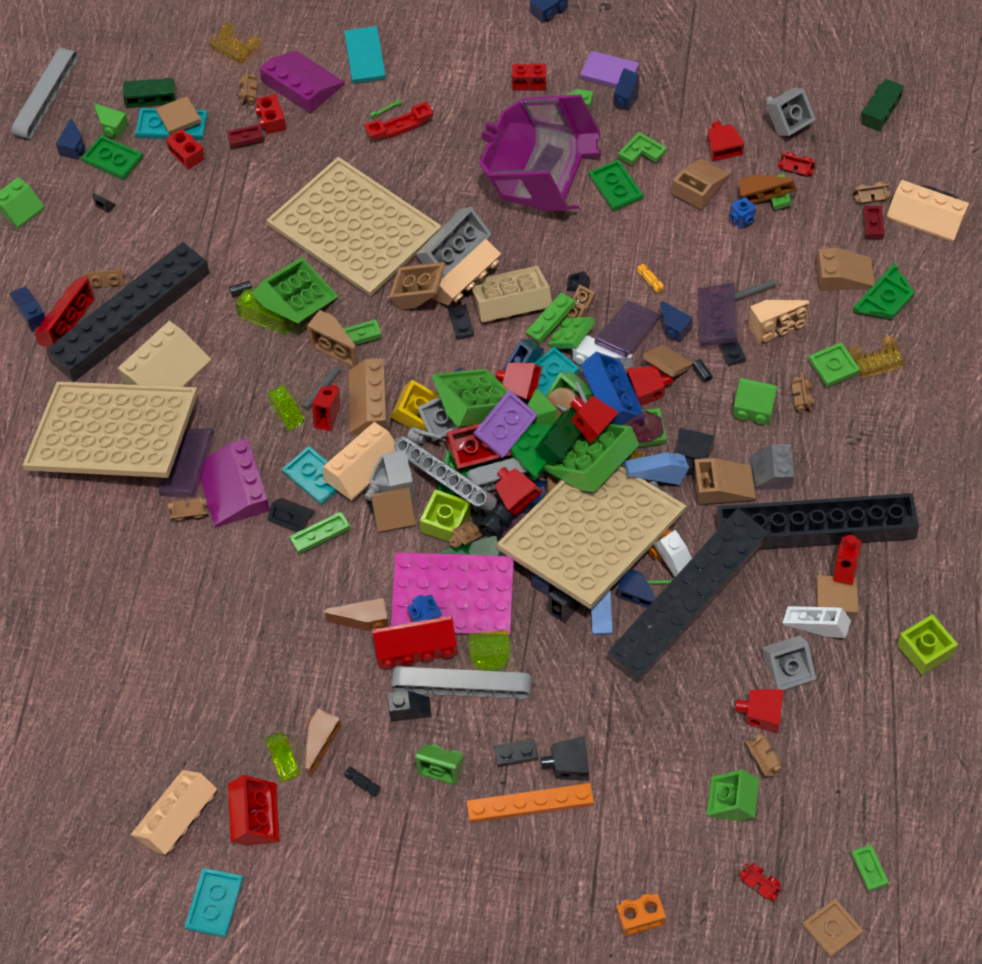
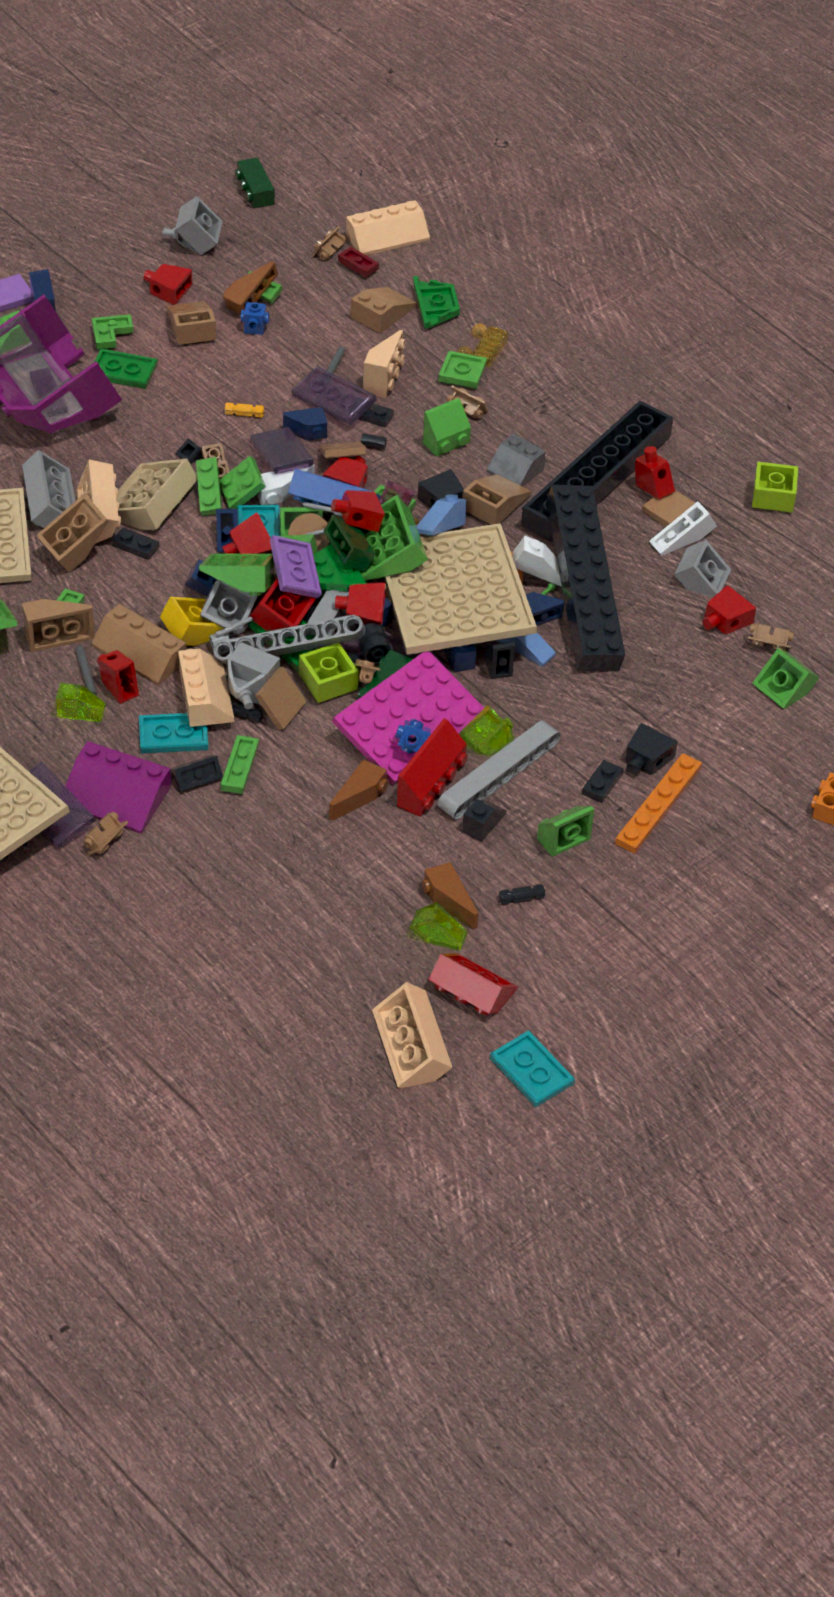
camera: 55 degrees left, 10 degrees down
(804, 164) = (239, 262): red hinge -> none

